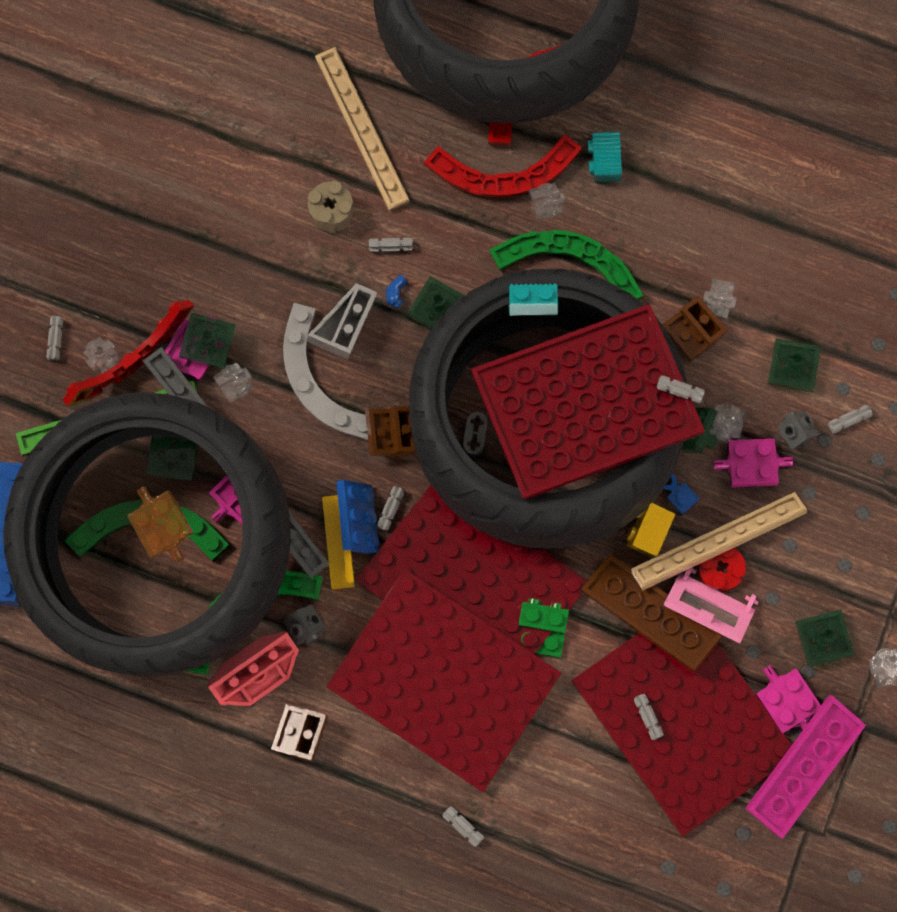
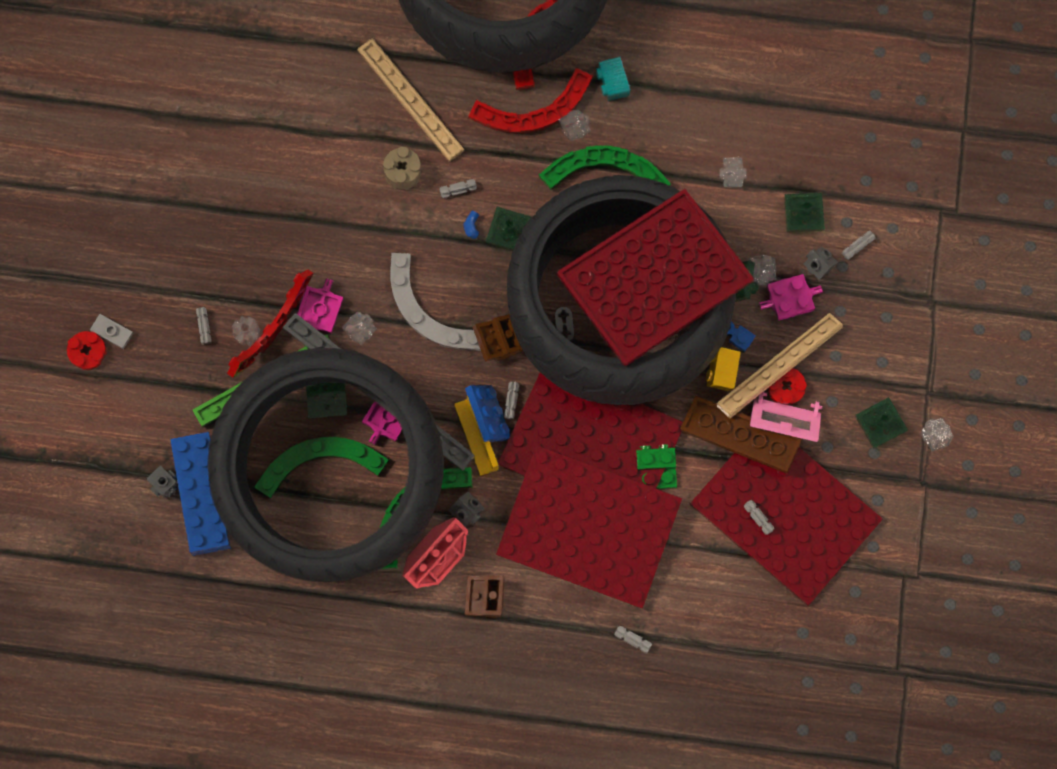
camera: 20 degrees left, 0 degrees up
(160, 524) = (339, 453): clear orange plate -> none
(198, 326) = (330, 292): clear green plate -> none
(344, 322) = (438, 259): light grey wedge -> none
(533, 299) = (592, 205): teal brick -> none
(680, 389) = (727, 250): light grey axle -> none
(694, 329) = (720, 200): reddish brown brick -> none
(788, 699) = (865, 478): dark pink plate -> none
(805, 767) = (891, 527): dark pink plate -> none

